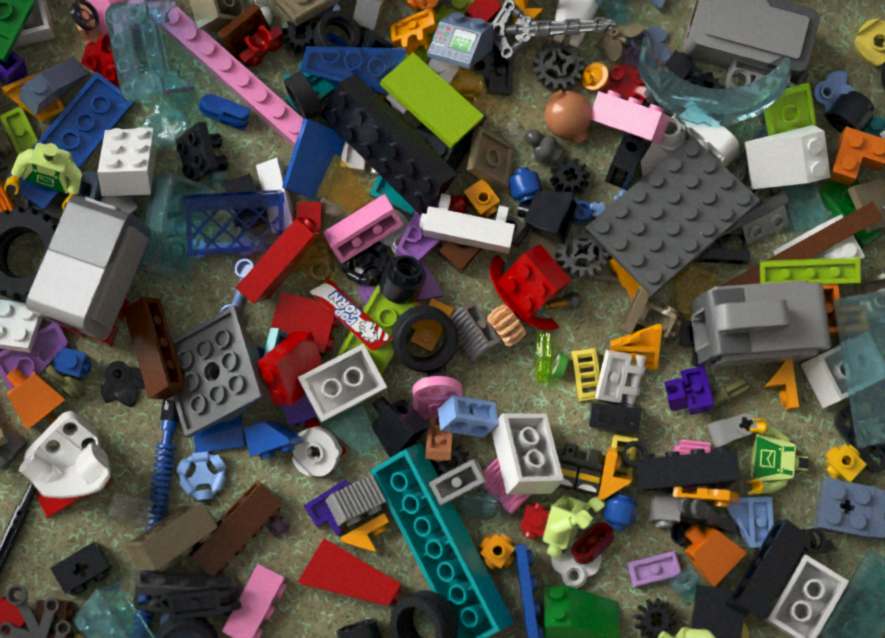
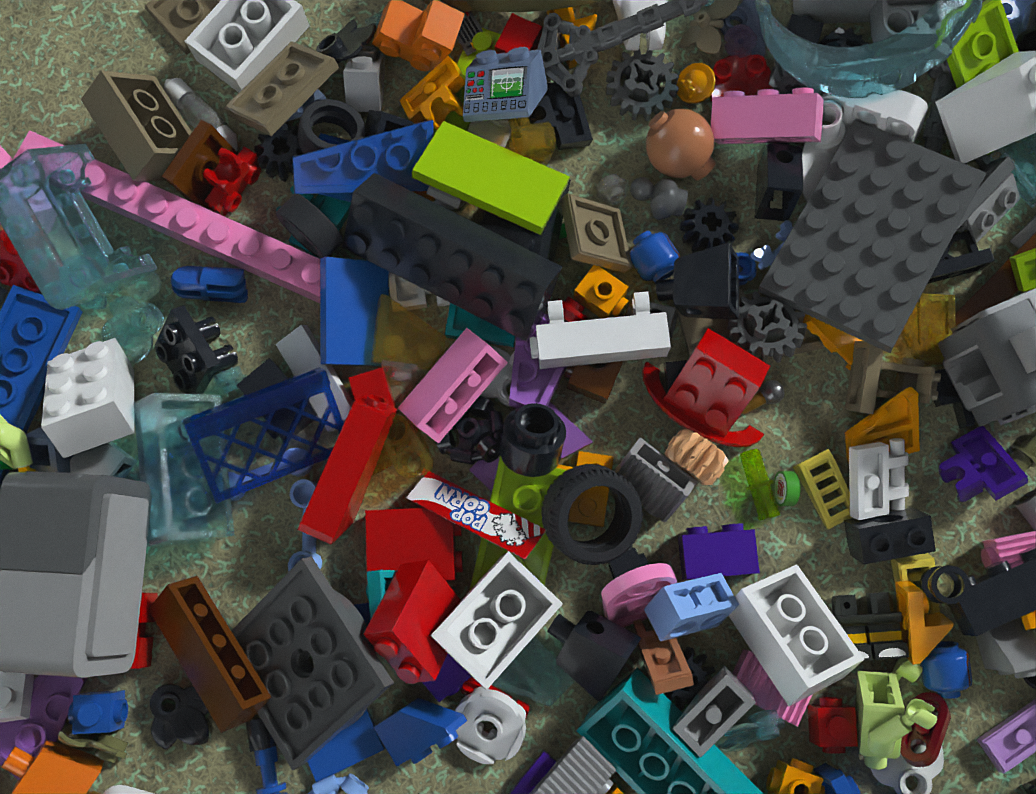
camera: 15 degrees left, 0 degrees up
(505, 392) = (722, 552): none -> dark purple brick

